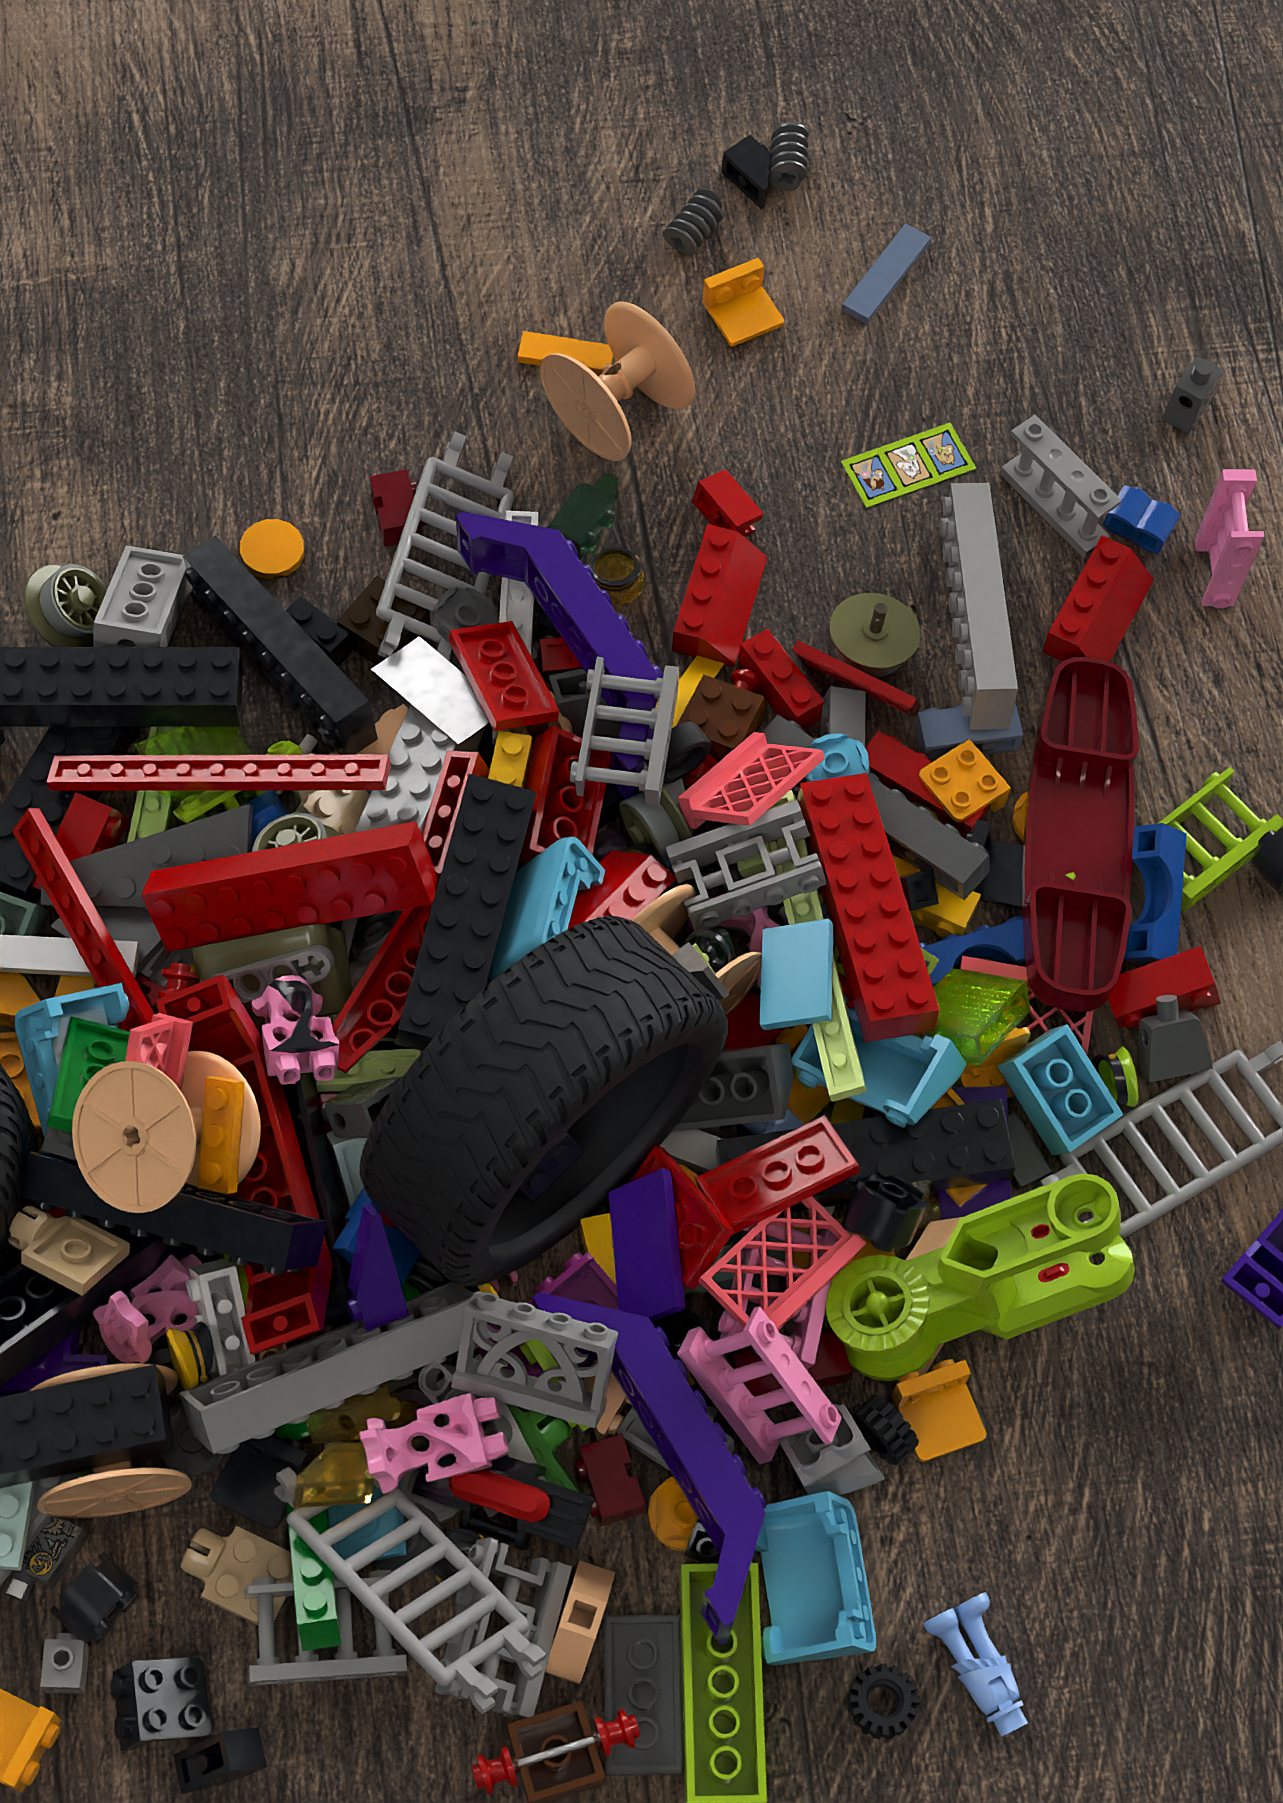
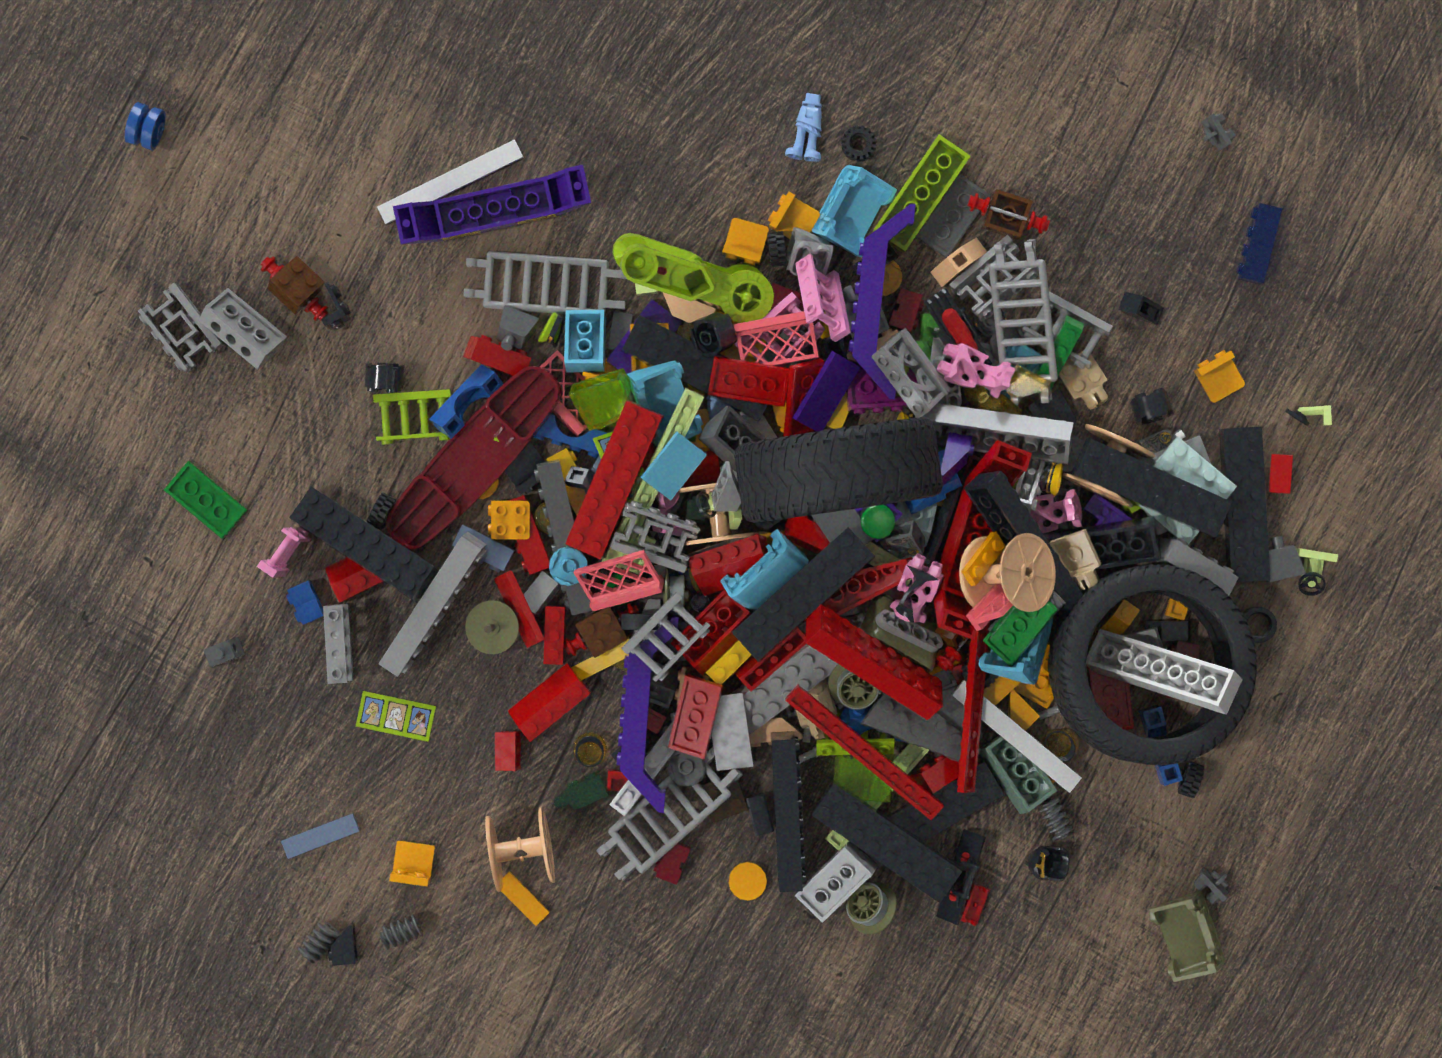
camera: 140 degrees left, 25 degrees up
(64, 1665) = (1179, 390): light grey brick -> none
(160, 1701) = (1150, 348): black bracket -> none
(899, 1505) = (792, 214): none -> light orange bracket
(1133, 617) = (364, 544): none -> black brick
(1147, 683) = (381, 510): none -> black tyre

